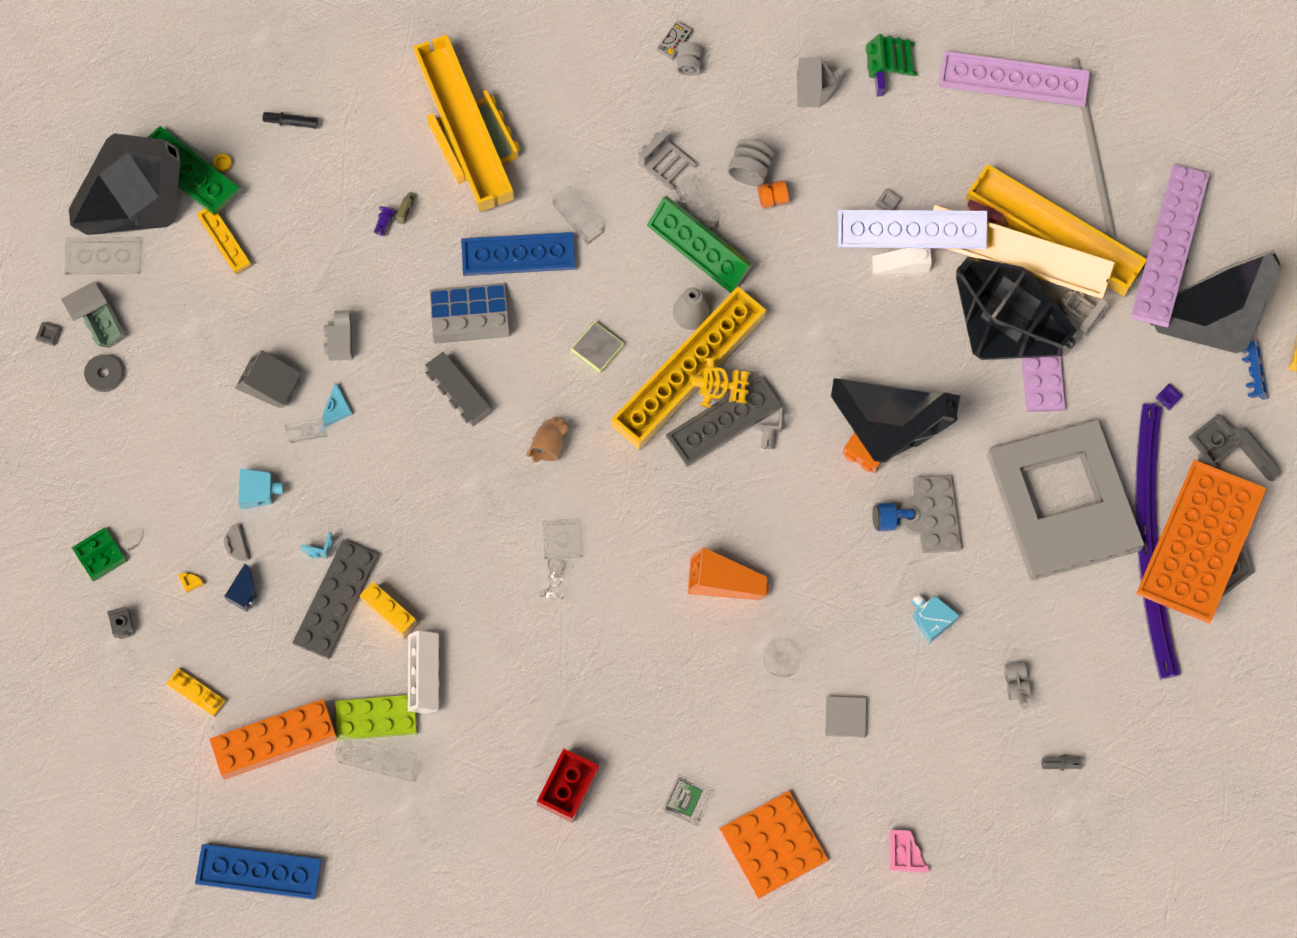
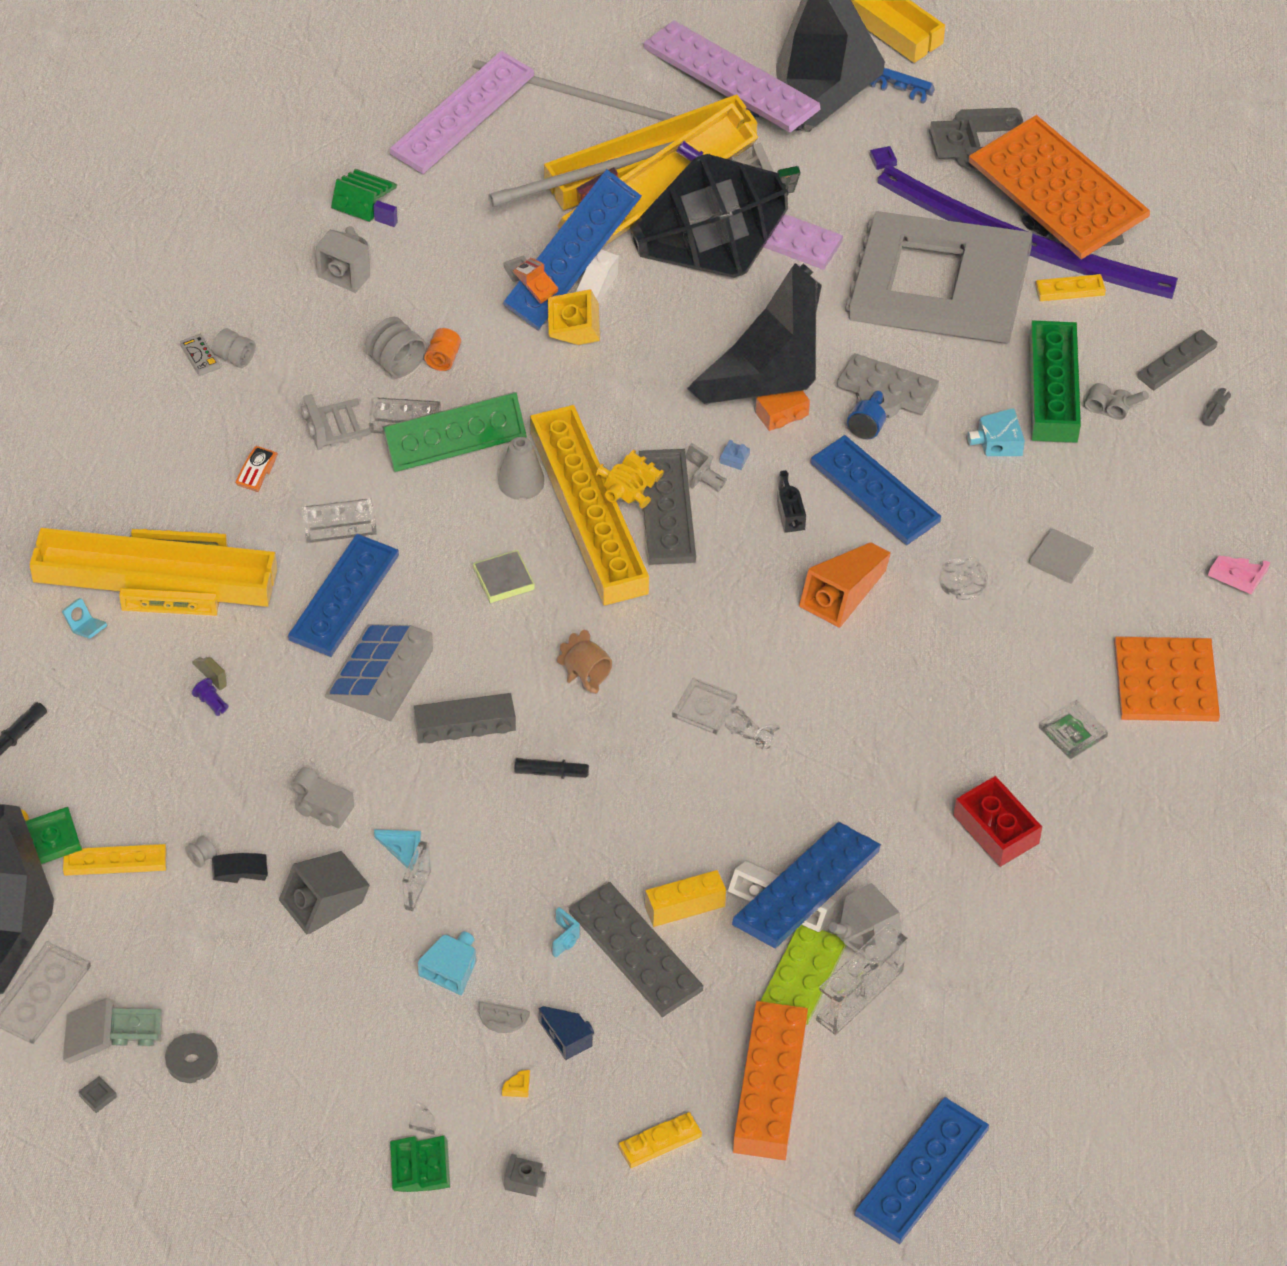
camera: 60 degrees left, 20 degrees down
(257, 287) = (200, 851): none -> light grey wheel
(260, 317) = (239, 865): none -> black slope
(398, 110) = (86, 625): none -> medium azure bracket
(426, 738) = (864, 916): none -> light grey piece
(432, 684) = (806, 885): none -> blue plate
(453, 474) = (551, 768): none -> black axle
(594, 134) = (255, 468): none -> slope
(768, 509) = (790, 505): none -> black piece
(801, 442) = (734, 455): none -> medium blue tile
(826, 556) = (876, 489): none -> blue plate
(856, 265) = (574, 317): none -> yellow slope
(866, 219) = (534, 278): none -> orange slope
(932, 156) = (508, 195): none -> light grey piece
(1007, 632) = (1054, 381): none -> green brick
(1049, 263) = (688, 151): none -> dark purple pin
(1086, 339) = (790, 177): none -> tile
(1095, 712) = (1177, 359): none -> dark grey plate
(1120, 599) = (1070, 287): none -> yellow tile

